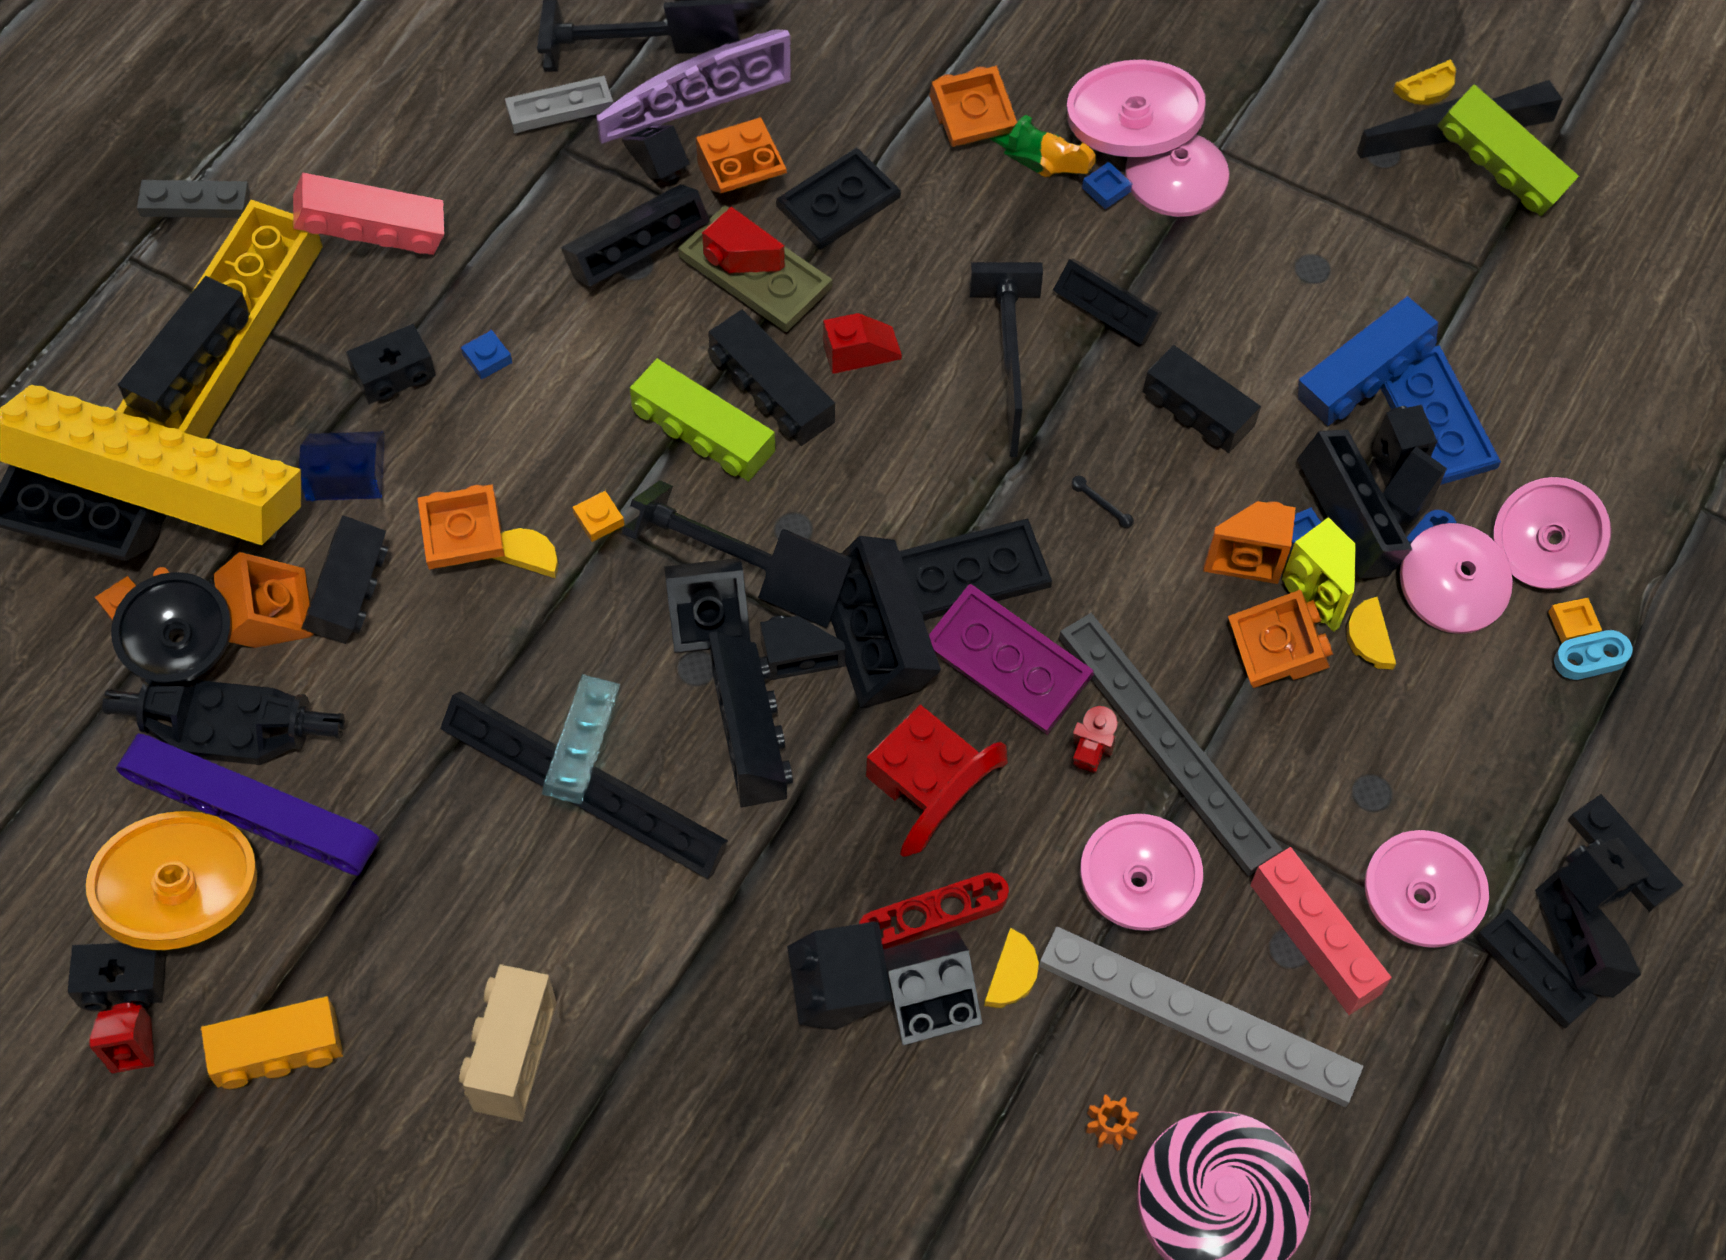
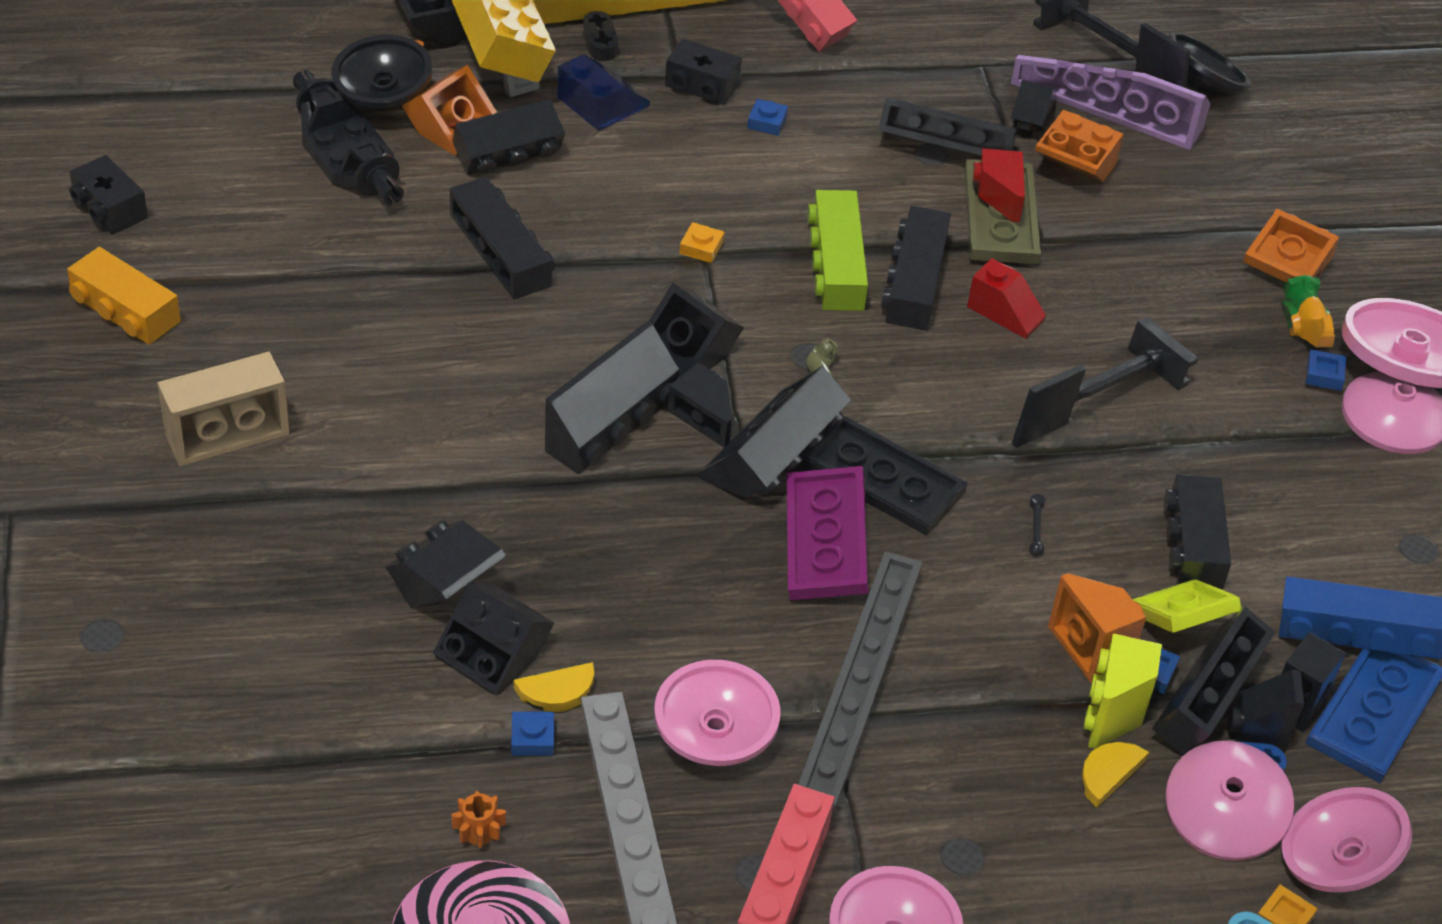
camera: 50 degrees right, 15 degrees down
(123, 1038) = (60, 219): red slope -> none
(171, 880) = (198, 177): light orange dish -> none
(248, 804) = (293, 190): dark purple beam -> none
(264, 406) = (605, 34): none -> black beam
(460, 526) = (611, 169): orange plate -> none
(480, 670) = (501, 237): none -> black brick
(529, 551) = (632, 218): yellow tile -> none
(558, 104) = (1008, 38): light grey plate -> none
(581, 739) = (502, 317): clear light blue plate -> none
(605, 795) = (473, 350): black plate -> none
(798, 574) = (769, 360): black piece -> none
(811, 527) = (822, 355): none -> olive arm
(838, 198) = (1120, 227): black tile -> none
(929, 768) = (678, 524): red piece -> none
(936, 918) = (566, 605): red beam -> none
(1045, 1022) = (532, 734): none -> blue plate
(1094, 738) = (799, 620): hips -> none
(1107, 301) = (1218, 425): black plate -> none
(1270, 467) = (1187, 605): none -> neon yellow tile
(1281, 639) = (1033, 702): orange plate -> none

